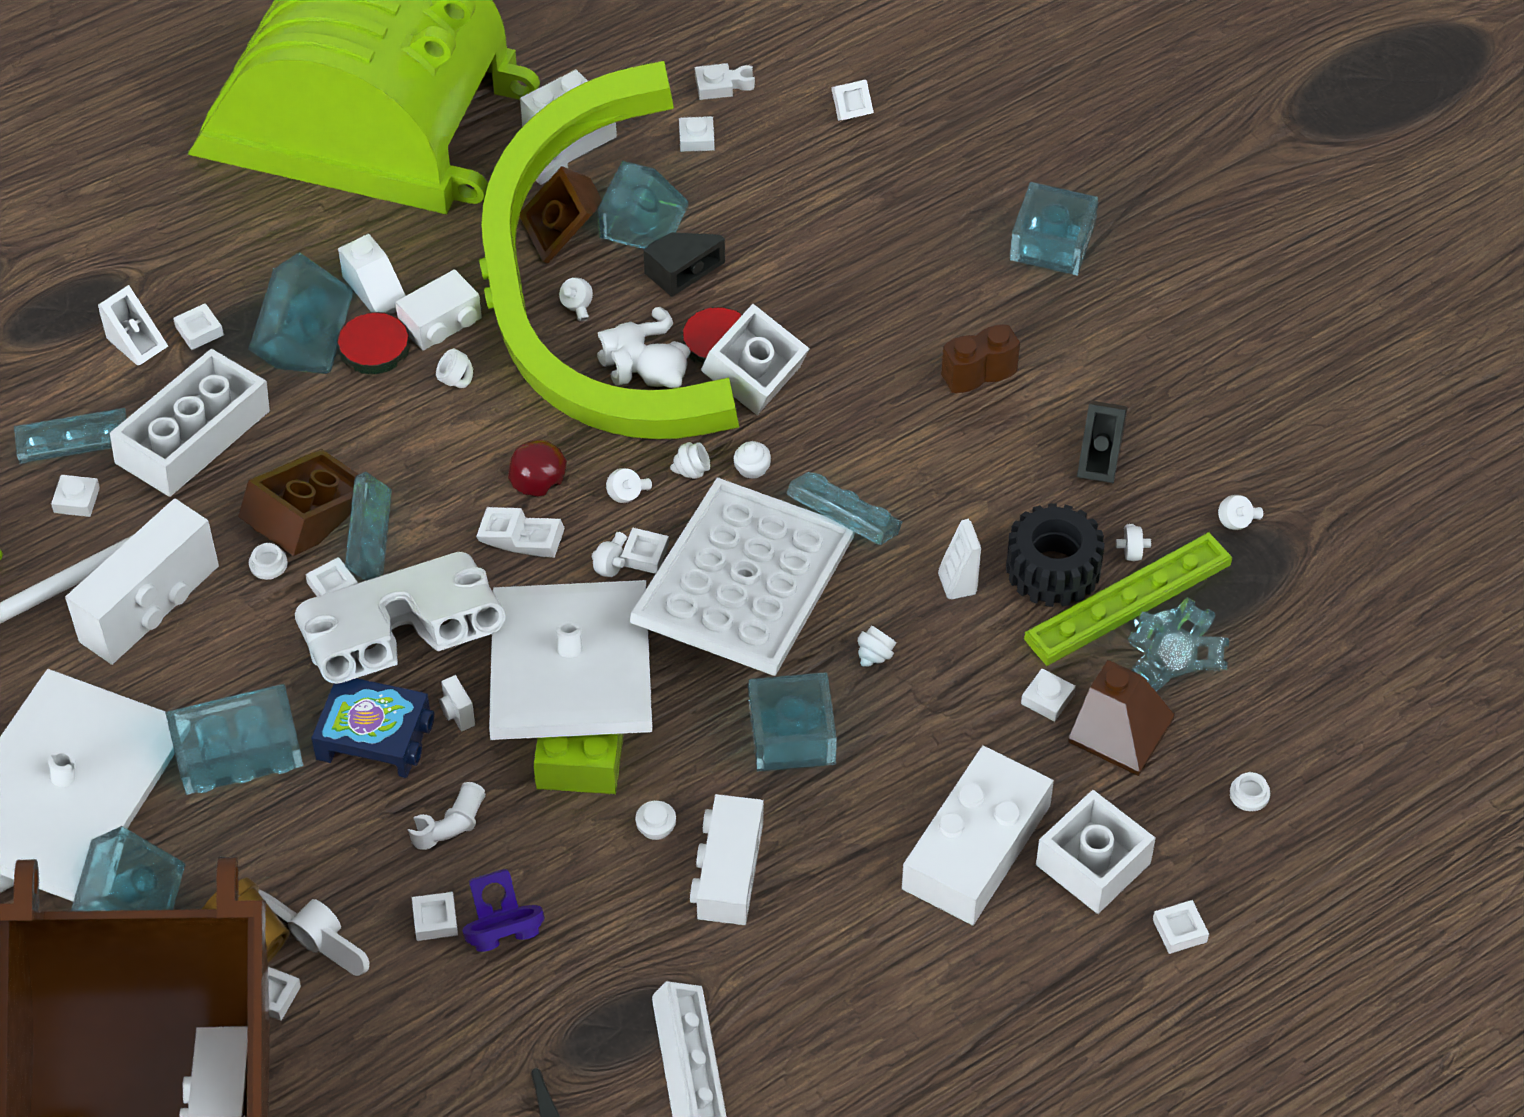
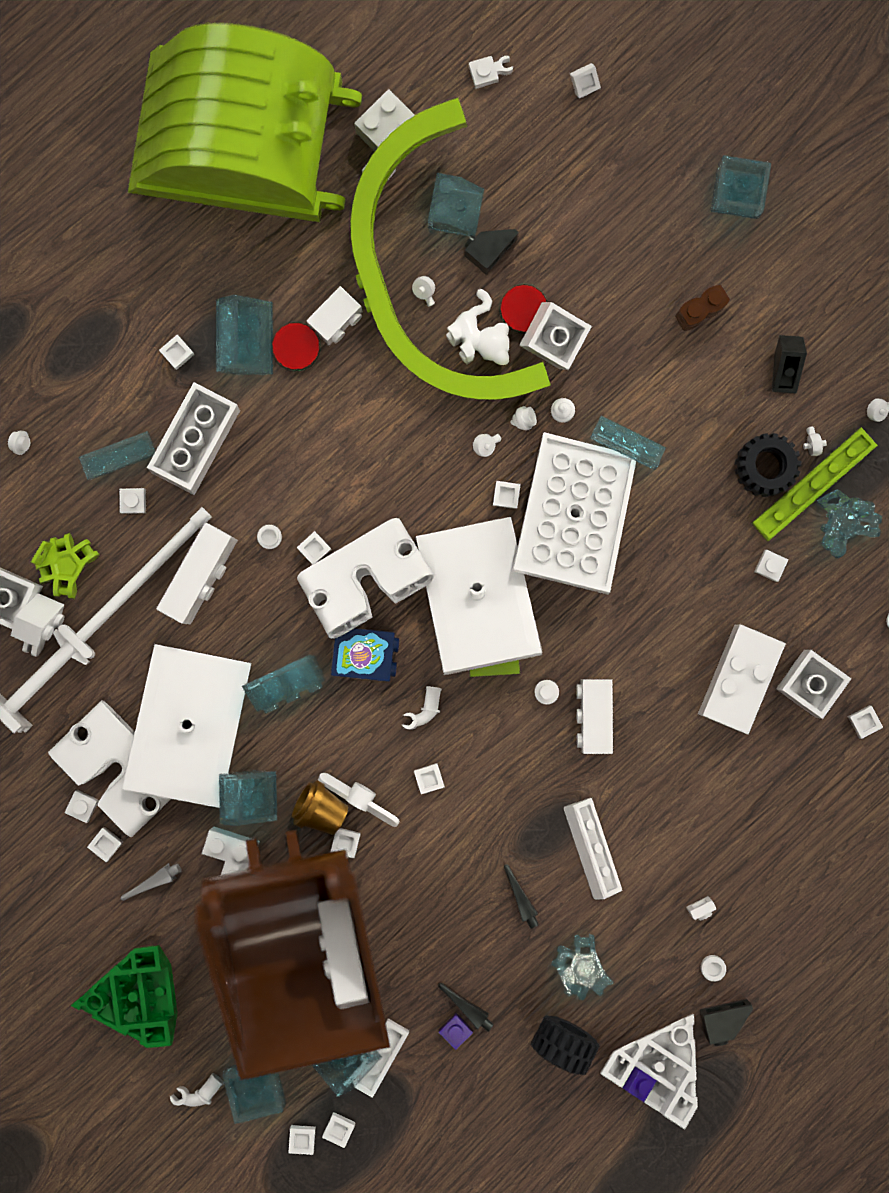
camera: 10 degrees left, 35 degrees up
(130, 326) = (134, 363): white slope -> none
(300, 501) = (283, 486): reddish brown slope -> none
(368, 527) = (328, 503): clear light blue plate -> none
(370, 274) = (284, 294): white slope -> none
(452, 367) = (355, 364): white tile -> none
(456, 703) = (411, 630): white plate -> none
(503, 922) = (469, 777): dark purple bracket -> none
(515, 533) = (424, 489): white slope -> none
(536, 467) = (425, 436): dark red hair -> none
(559, 211) = (402, 218): reddish brown slope -> none
(607, 556) = (485, 503): white piece -> none
(696, 134) = (479, 125): white plate -> none
(792, 721) = (620, 617): clear light blue brick -> none
(874, 647) = (662, 547): white plate -> none
(961, 563) = (709, 482): white slope -> none
(1121, 719) = (817, 581): reddish brown slope -> none

